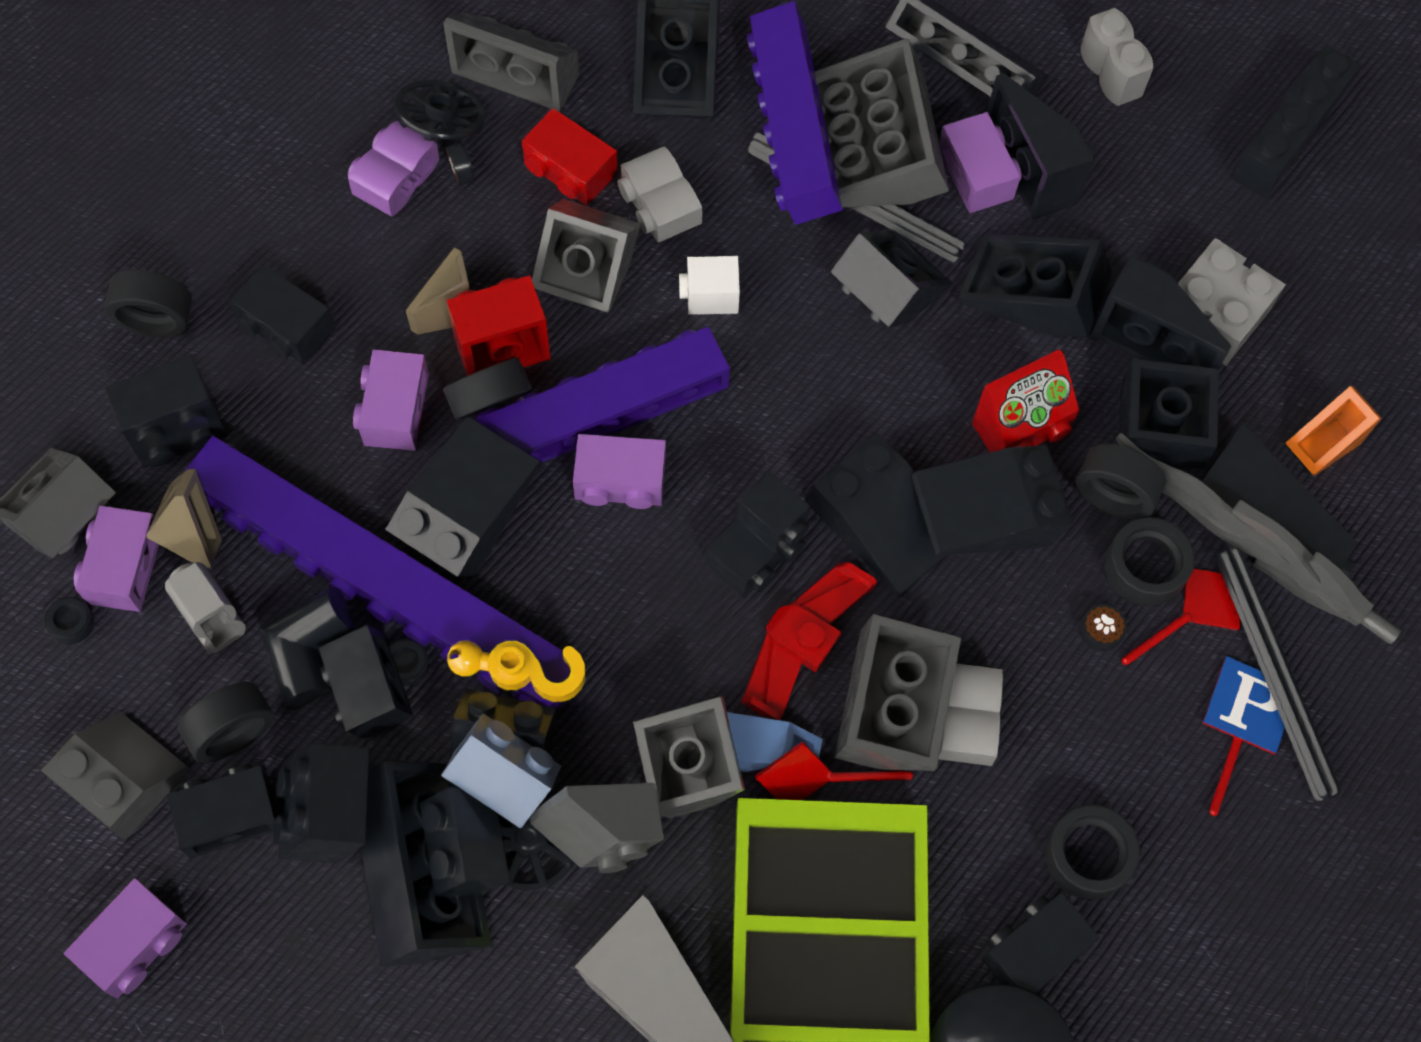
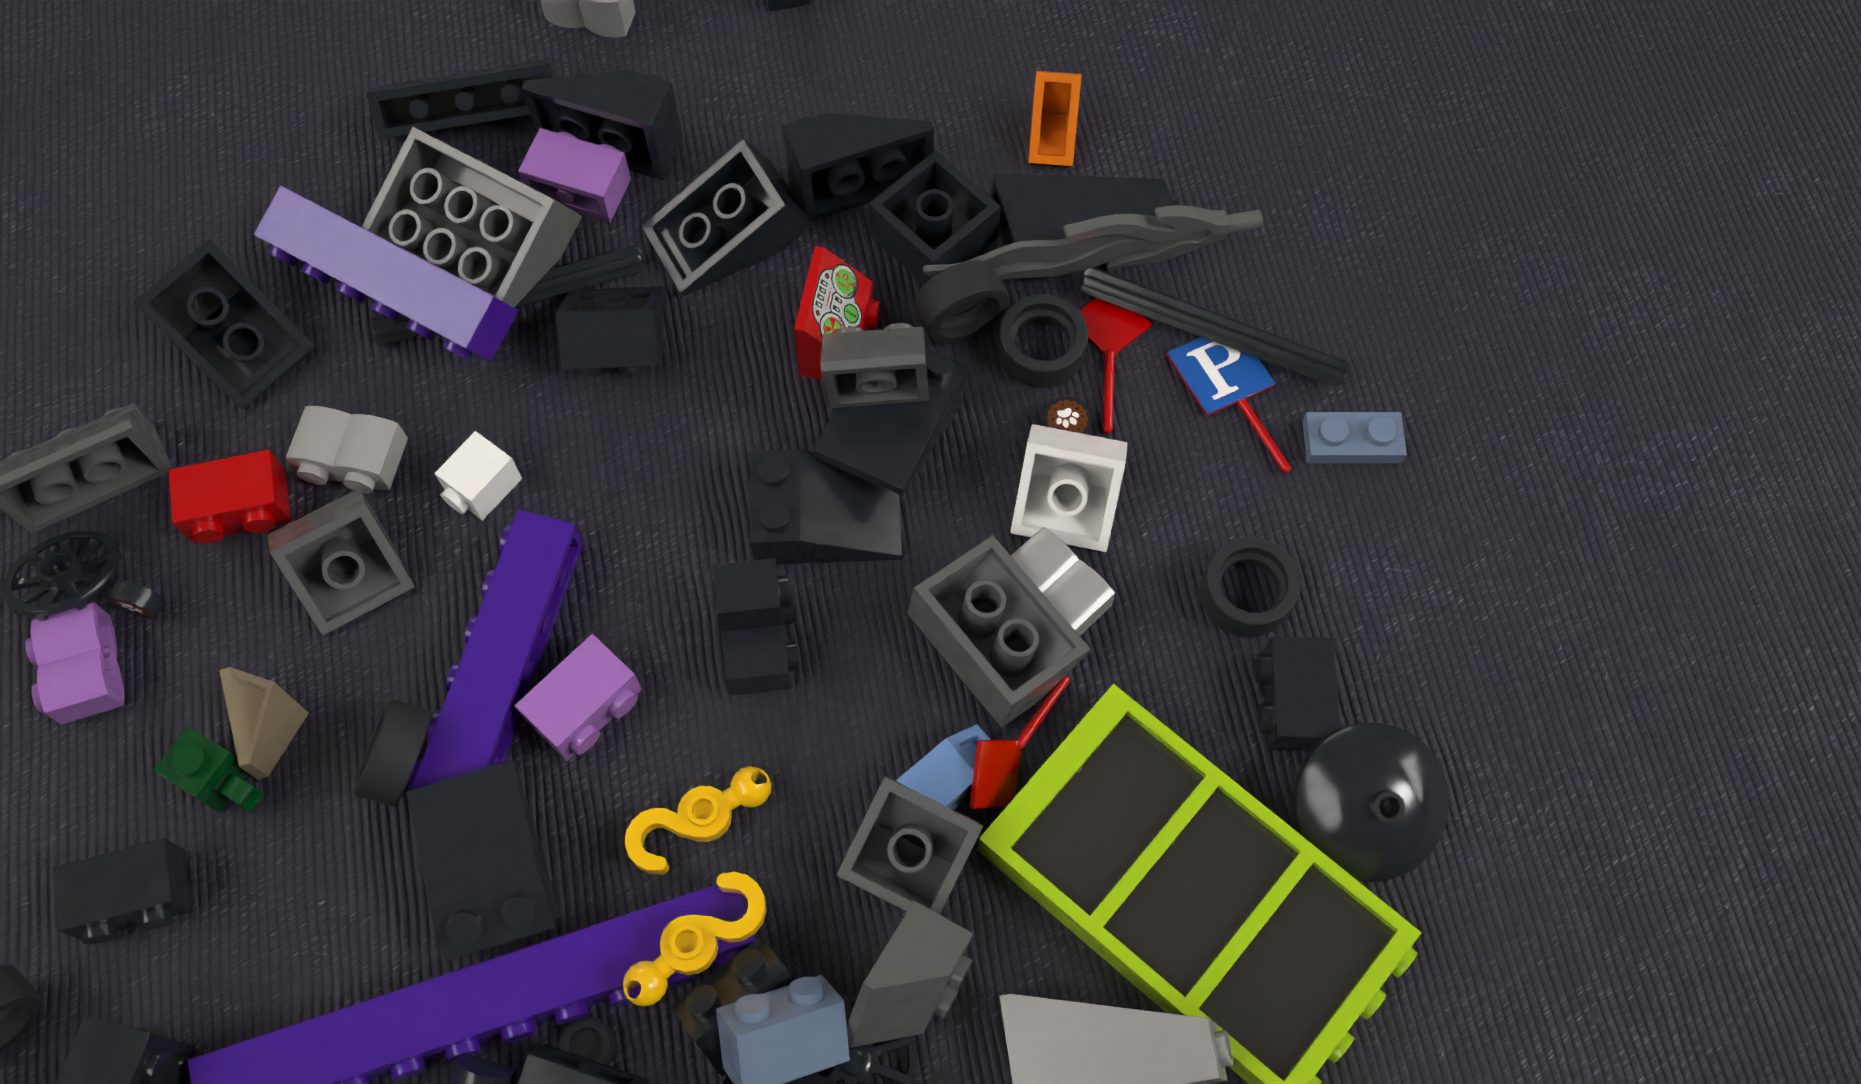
camera: 50 degrees left, 0 degrees up
(388, 297) = (207, 772): none -> dark green brick
(392, 400) = (314, 852): medium lavender brick -> none
(499, 325) = (340, 692): red brick -> none
(607, 609) = (701, 816): none -> yellow piece
(802, 636) = (870, 667): red plate -> none
(1005, 457) = (875, 366): none -> dark grey slope
(1052, 665) = (1069, 486): none -> white slope
(1231, 293) = (872, 86): light grey piece -> none
(1286, 844) = (1354, 437): none -> sand blue plate

